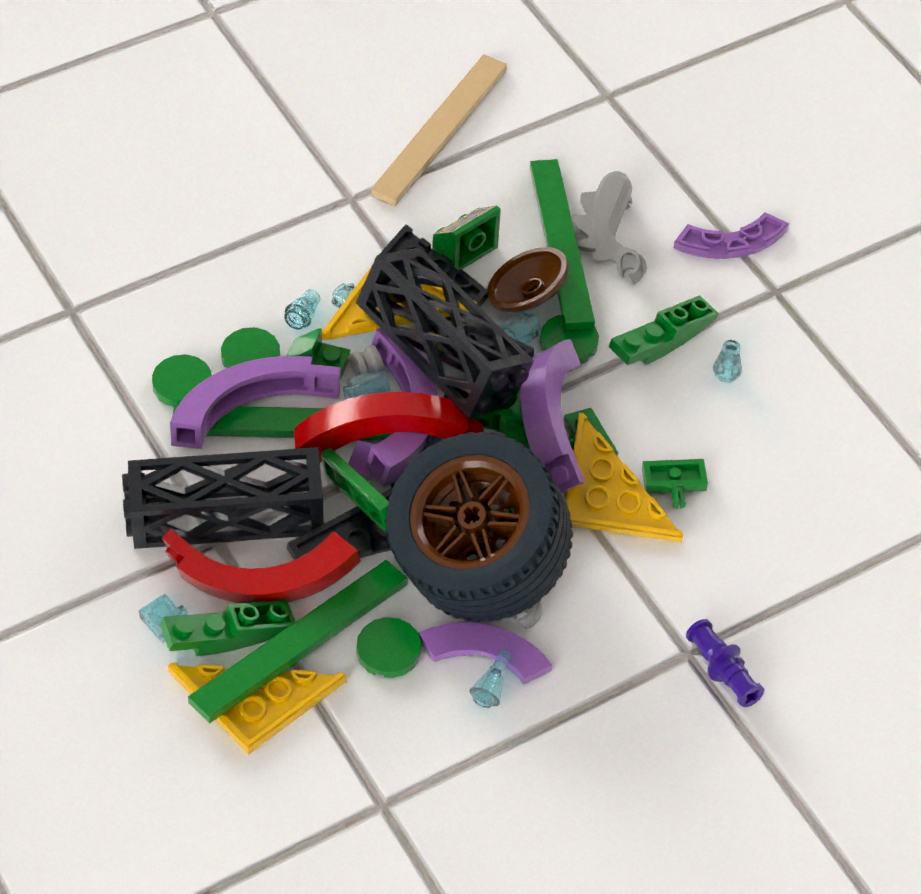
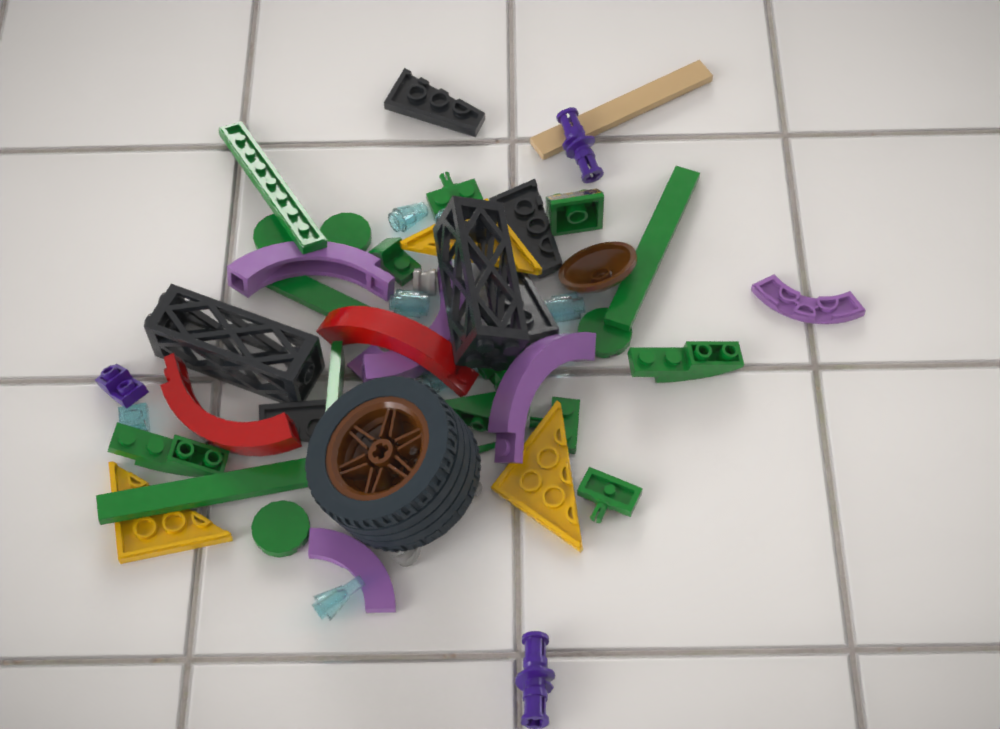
camera: 35 degrees right, 5 degrees up
(124, 590) = (121, 385): none -> dark purple slope
(146, 333) = (273, 188): none -> tile
(235, 195) = (424, 102): none -> black wing
(333, 272) = (440, 198): none -> green plate
(427, 176) = (579, 146): none -> dark purple piece
(600, 225) = (703, 235): light grey animal -> none
(728, 362) = (723, 412): clear light blue cone -> none

